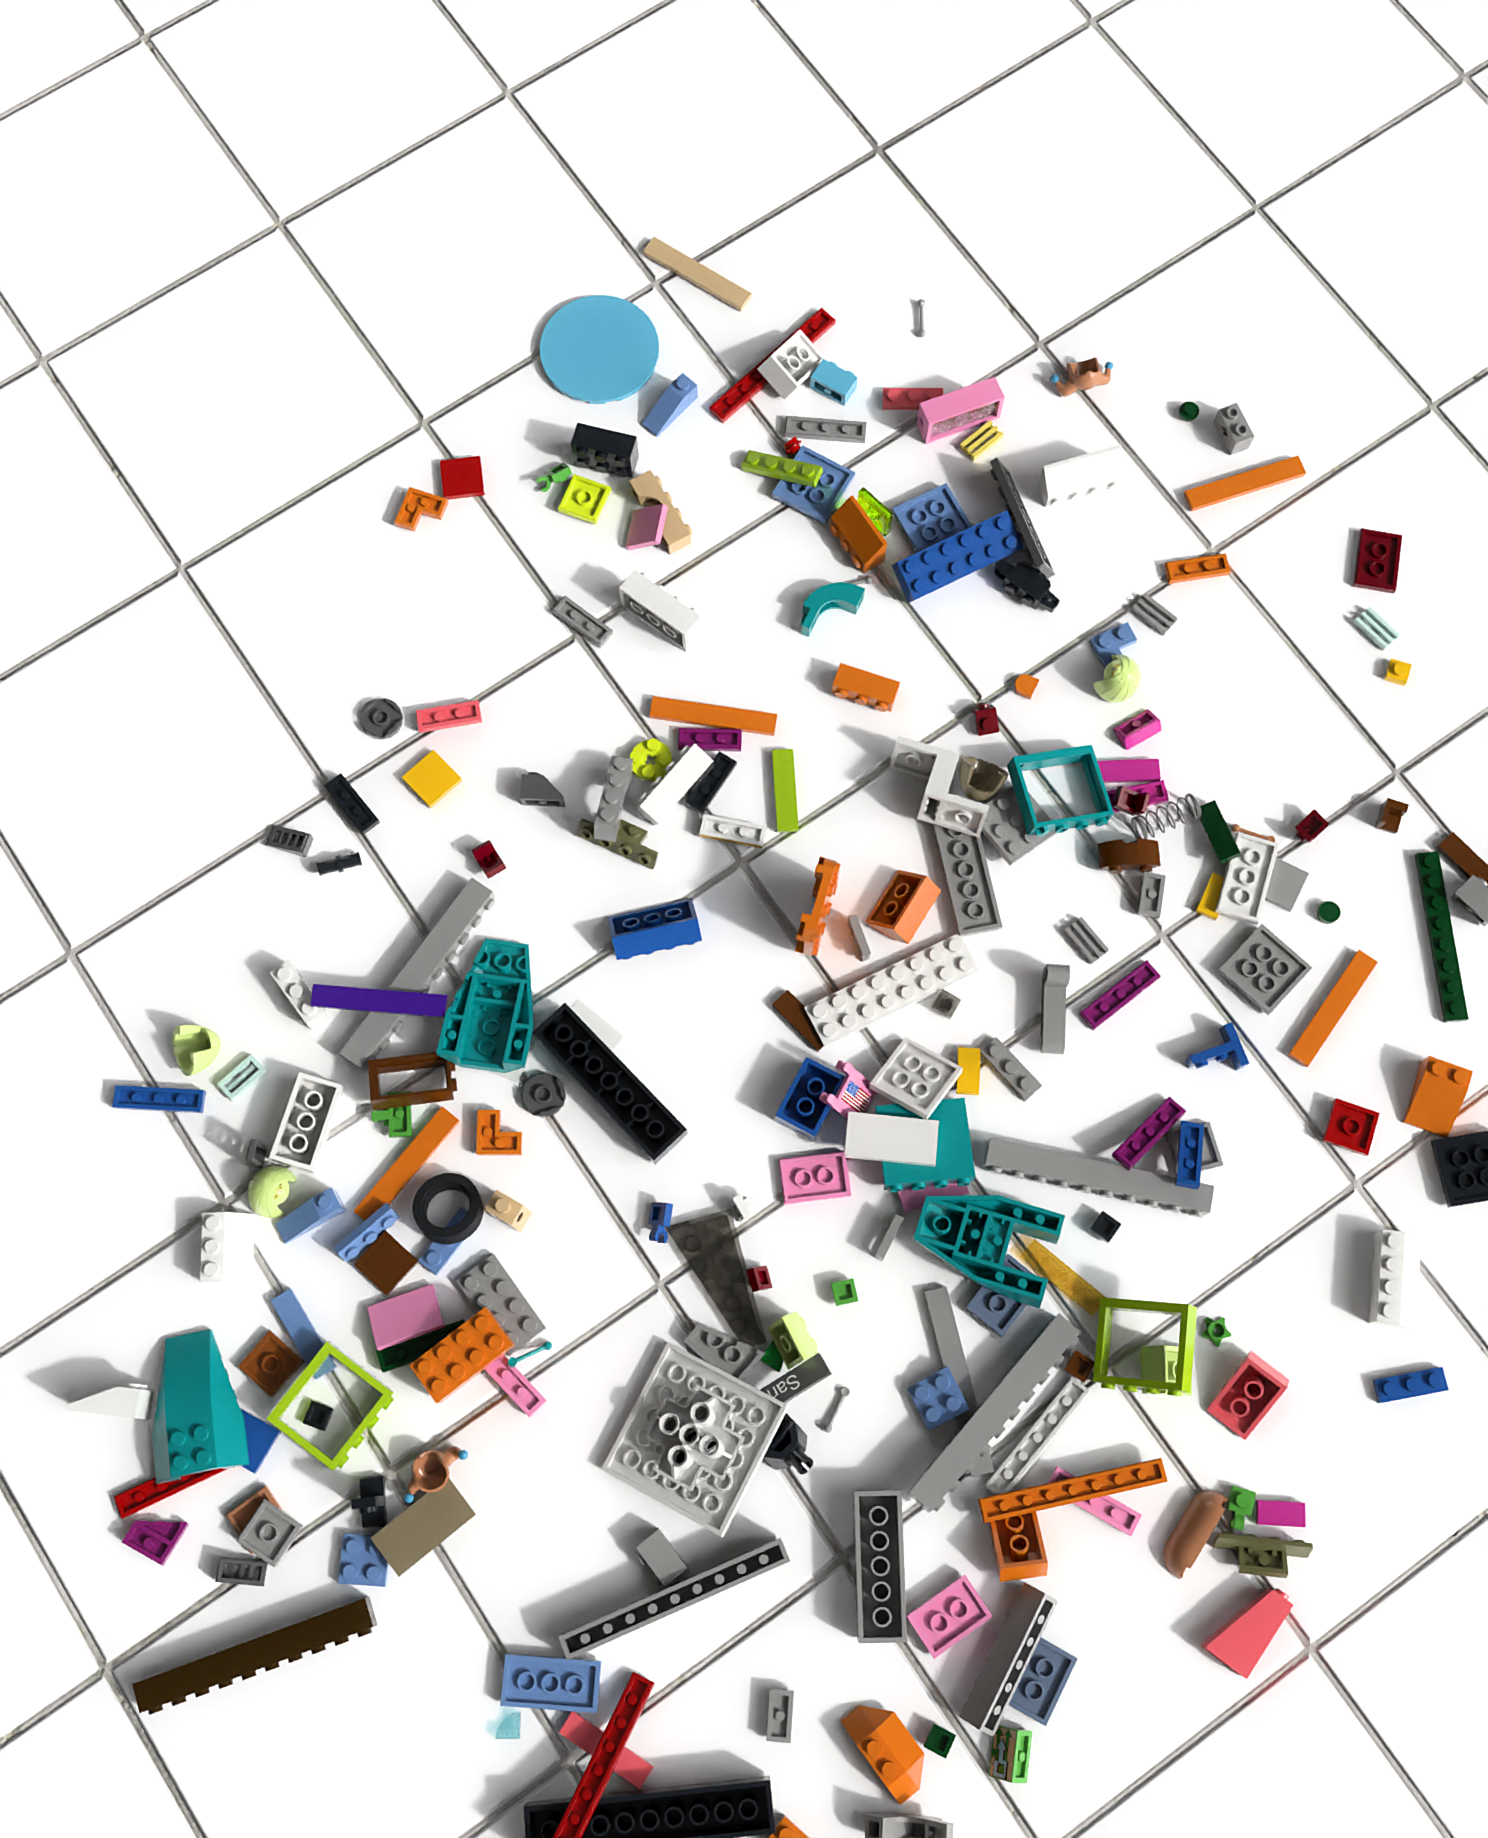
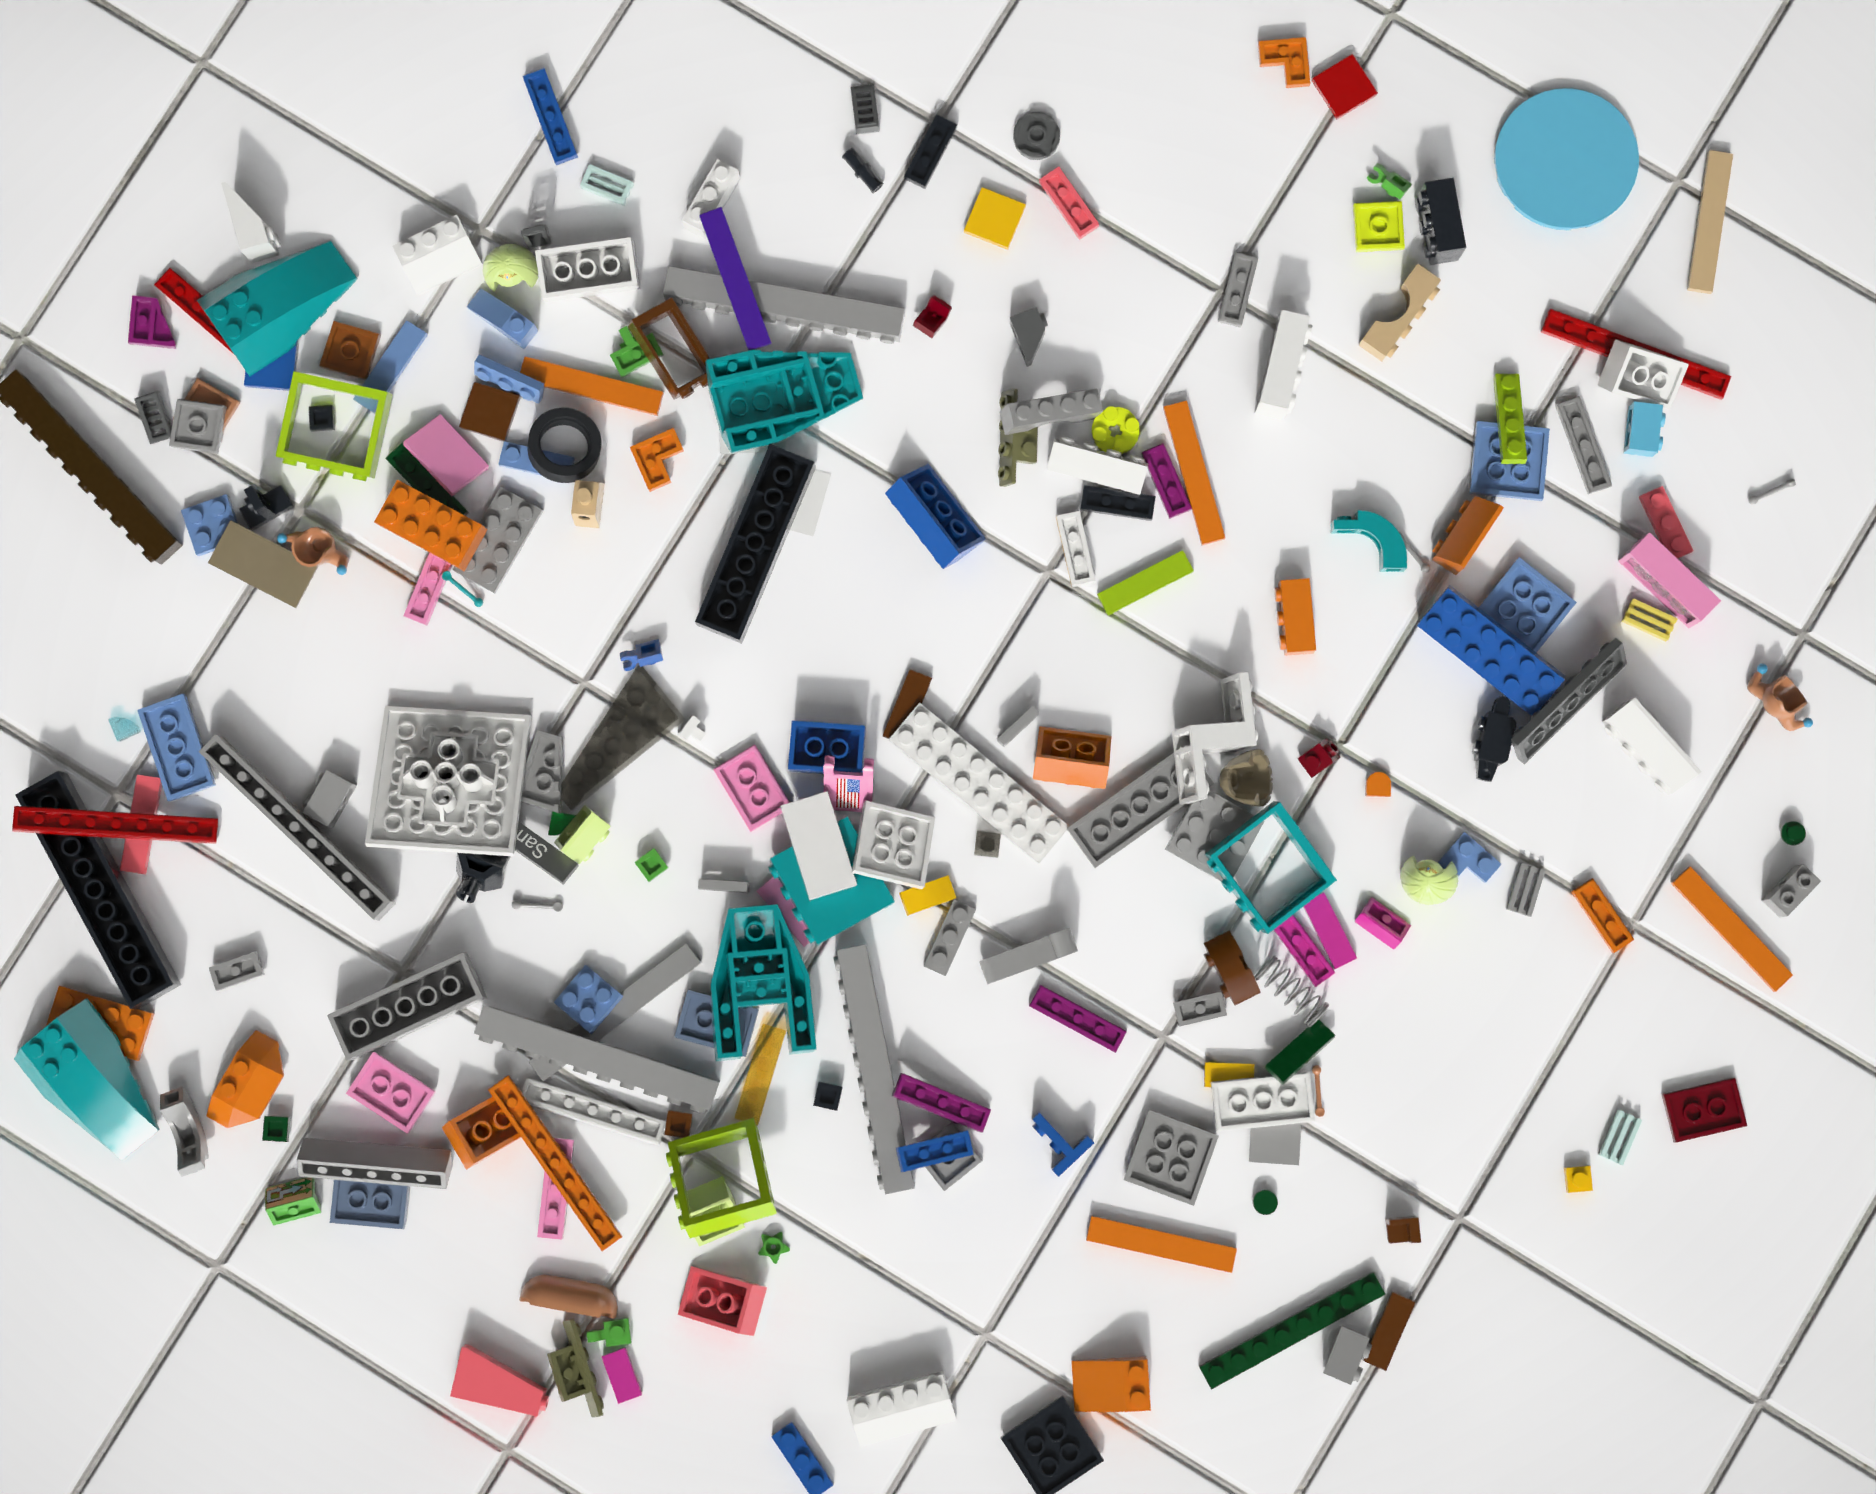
camera: 70 degrees right, 10 degrees up
(194, 1048) = (612, 126): yellowish green hair -> none
(543, 1095) = (718, 485): dark grey tile -> none
(646, 527) = (1373, 306): bright pink tile -> none
(672, 403) = (1532, 266): medium blue slope -> none
(759, 1278) = (628, 776): dark red plate -> none
(792, 446) = (1544, 418): red plate -> none
(812, 925) = (1055, 666): orange plate -> none
(876, 511) = (1502, 539): clear neon green tile -> none
(1104, 949) = (1131, 942): light grey tile -> none
(1130, 801) = (1291, 946): dark red bracket -> none
(1311, 826) = (1351, 1148): dark red bracket -> none
(1351, 1127) = (1040, 1307): red plate -> none

